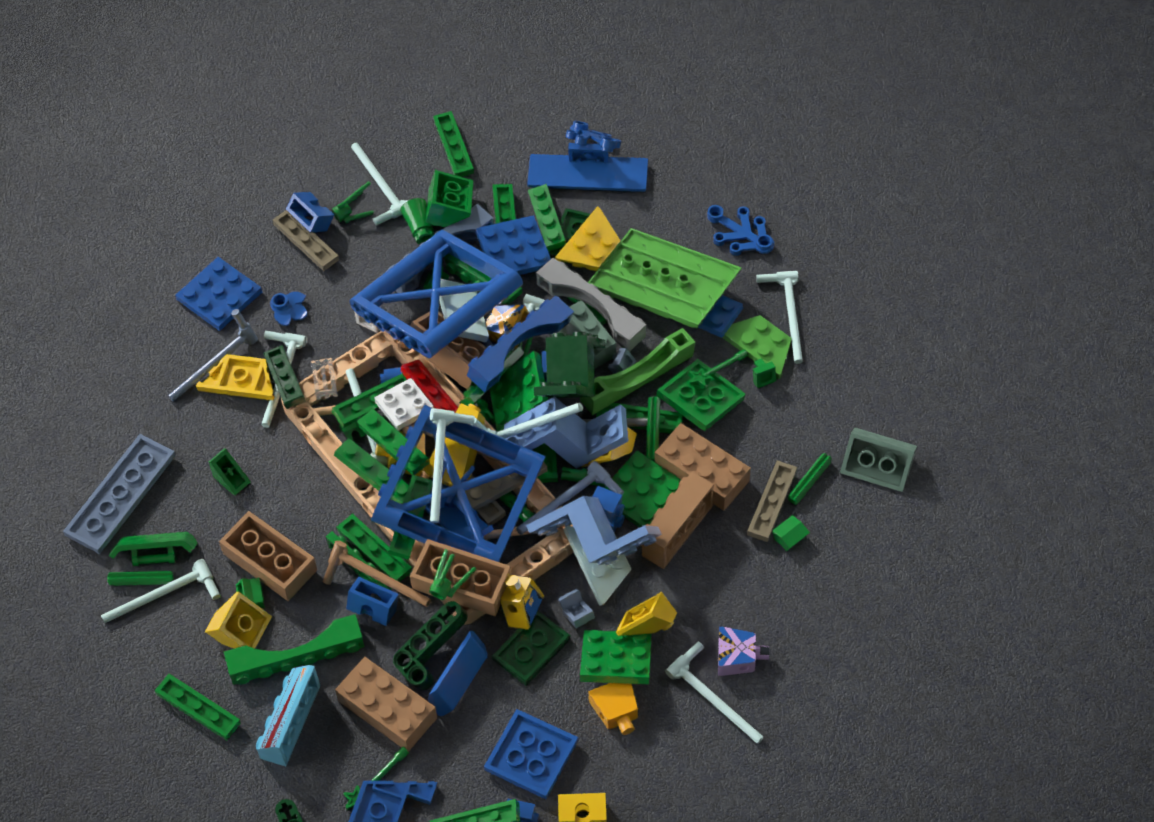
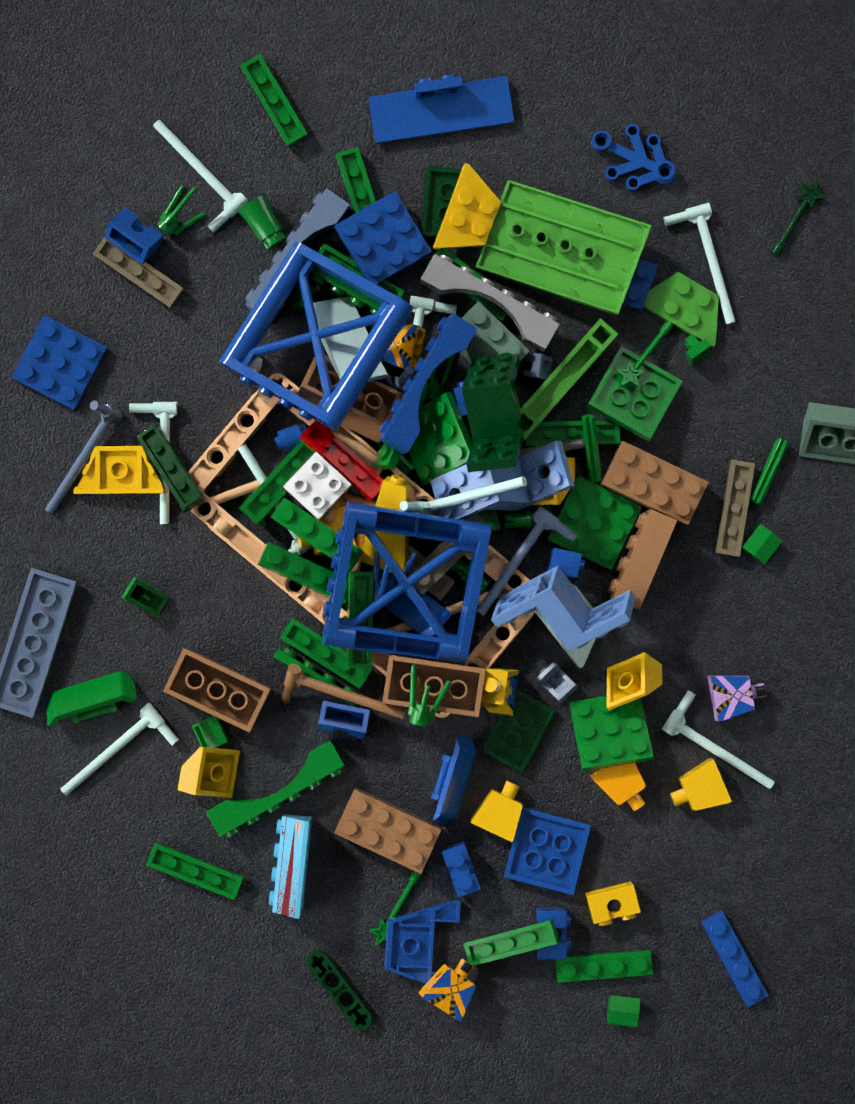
camera: 15 degrees left, 30 degrees up
(140, 578) = (87, 737): green axle -> none
(290, 308) = (149, 366): blue plate -> none
(325, 392) = (224, 481): clear tile -> none
(433, 643) = (417, 754): dark green beam -> none
(442, 419) = (373, 521): light aqua bar -> none
(444, 757) = (456, 858): none -> blue brick
(448, 199) = (292, 189): green slope -> none
(493, 709) = (499, 812): none -> yellow torso
(547, 217) = (409, 185): green plate -> none
(581, 132) = (419, 48): blue plant -> none
(692, 726) = (702, 787): none -> yellow torso
(883, 283) = (808, 197): none -> dark green piece

